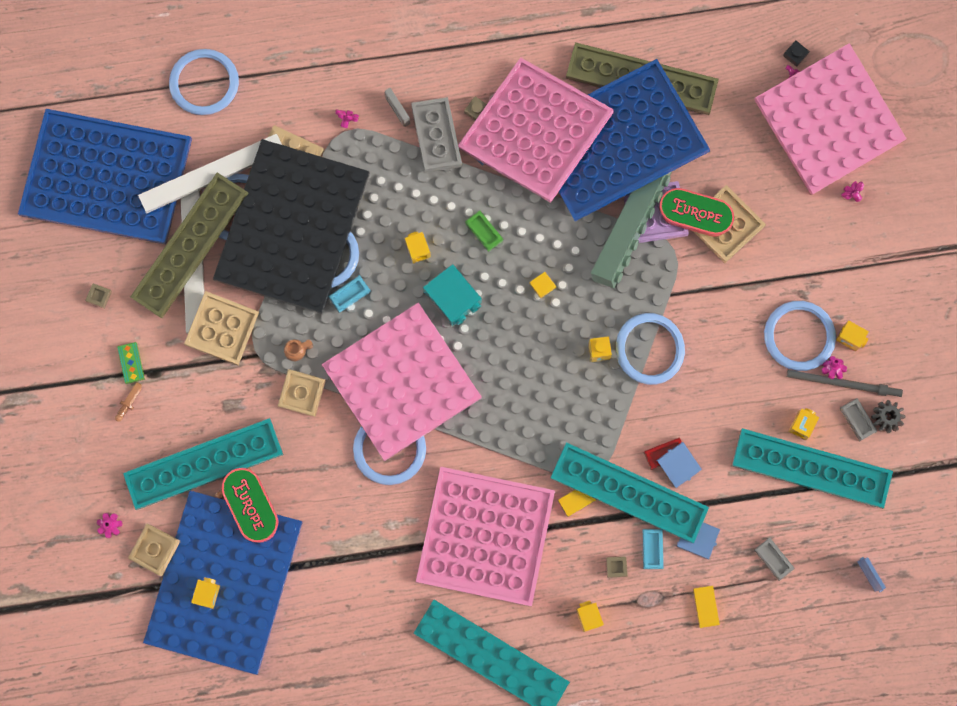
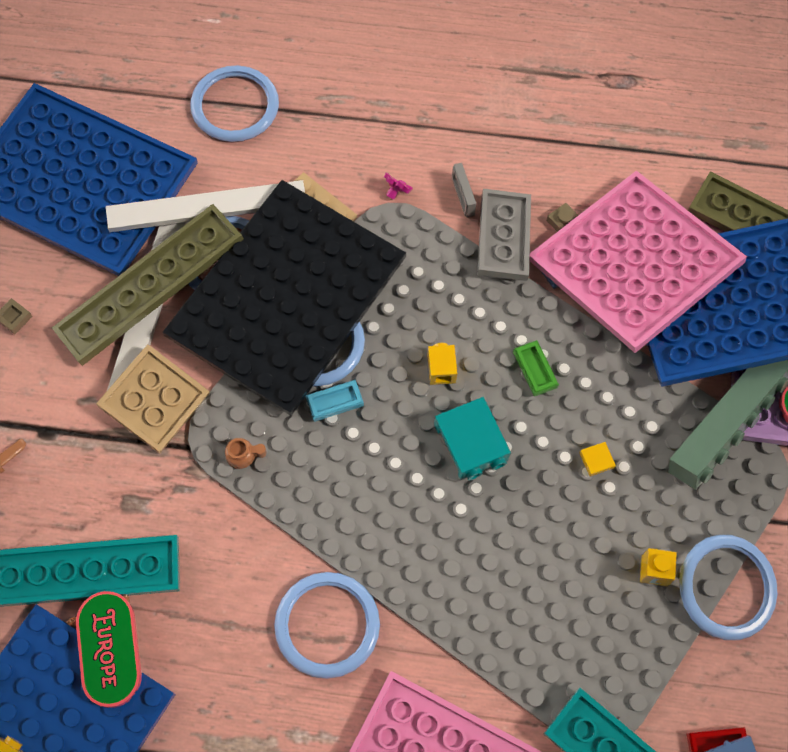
camera: 15 degrees right, 10 degrees down
(131, 363) = (22, 412): bright green tile -> none
(301, 392) = (231, 513): tan tile -> none
(401, 381) = (370, 537): bright pink plate -> none

